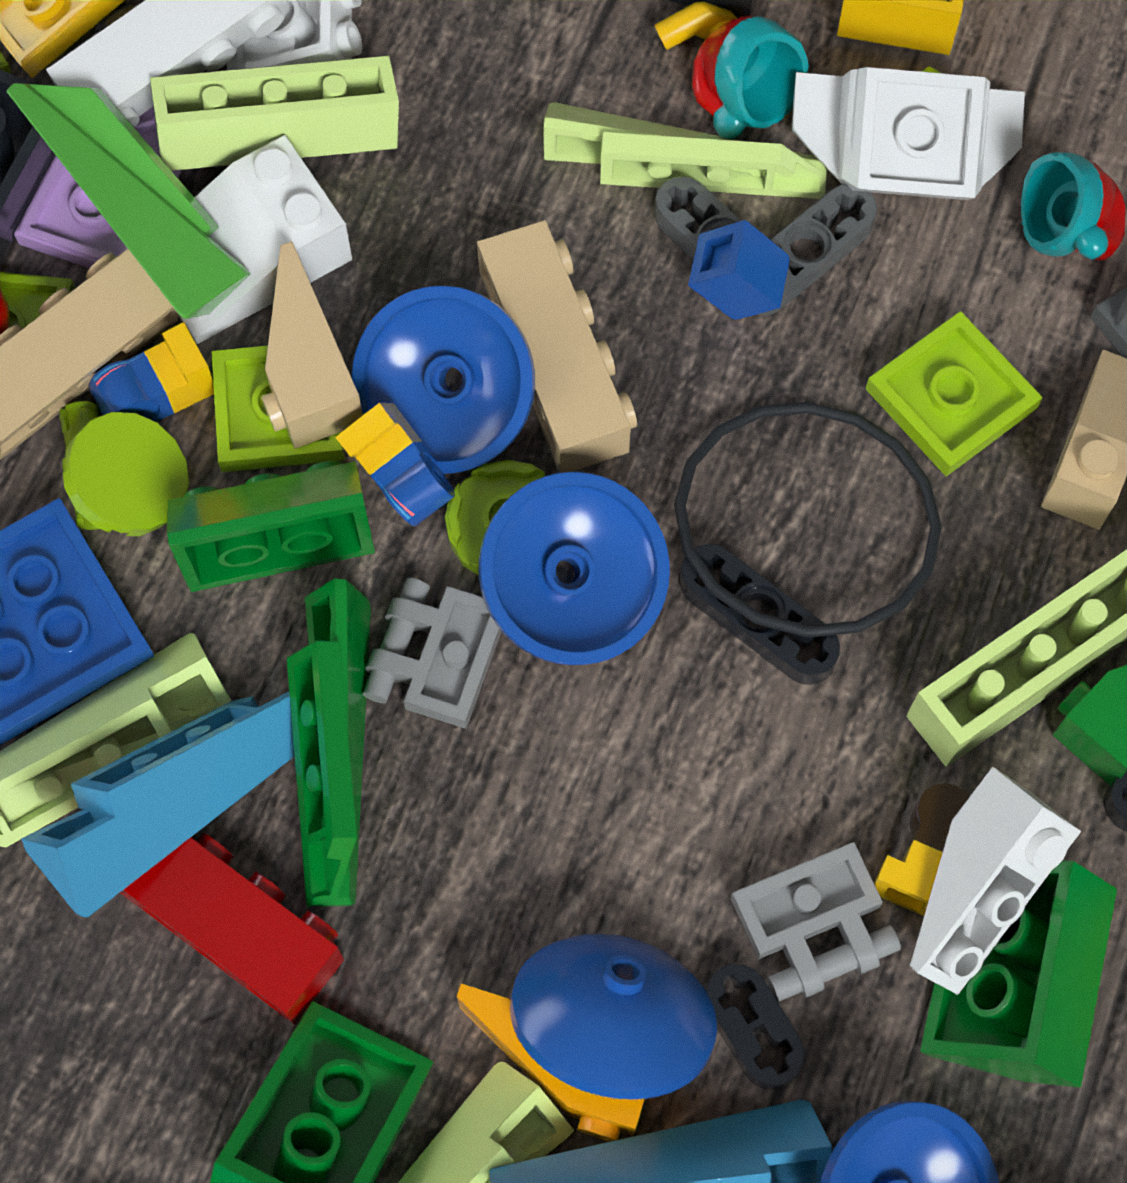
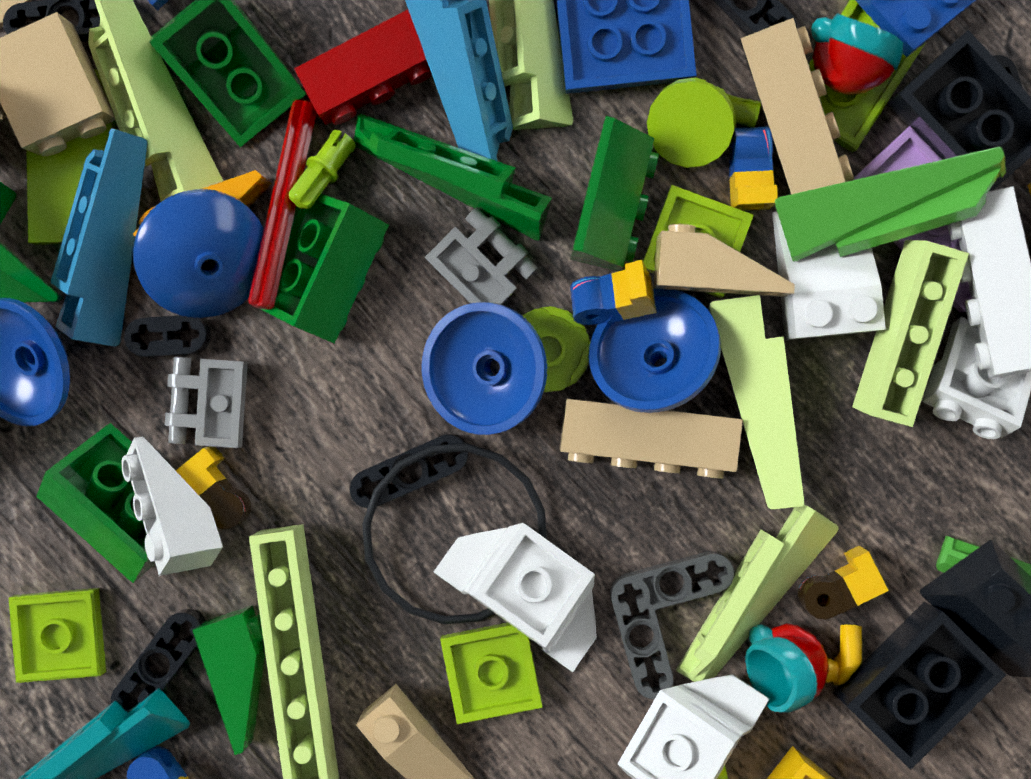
camera: 120 degrees right, 20 degrees up
(412, 915) = (321, 170): none -> lime axle
(435, 234) = (763, 397): none -> yellowish green wedge
(485, 945) = (281, 208): none -> red axle
(545, 860) = (326, 265): none -> green slope
(617, 60) = (843, 588): none -> leg
(739, 270) = (640, 580): blue panel -> none
(819, 407) = (527, 586): none -> white piece

